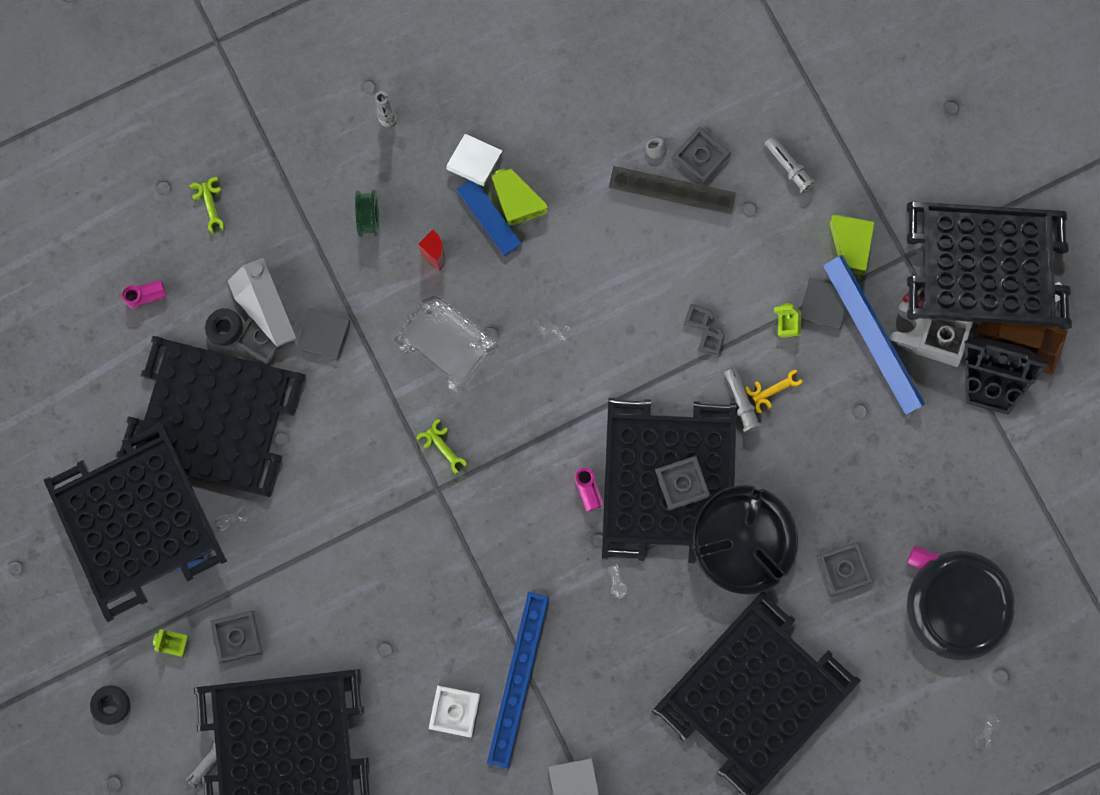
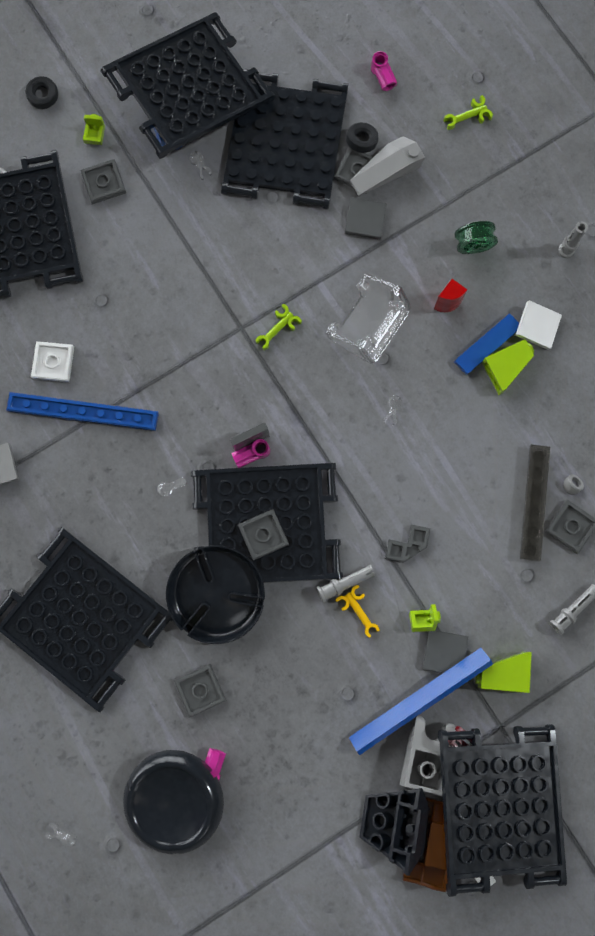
camera: 80 degrees right, 0 degrees up
(572, 487) = (248, 437): none -> dark grey tile

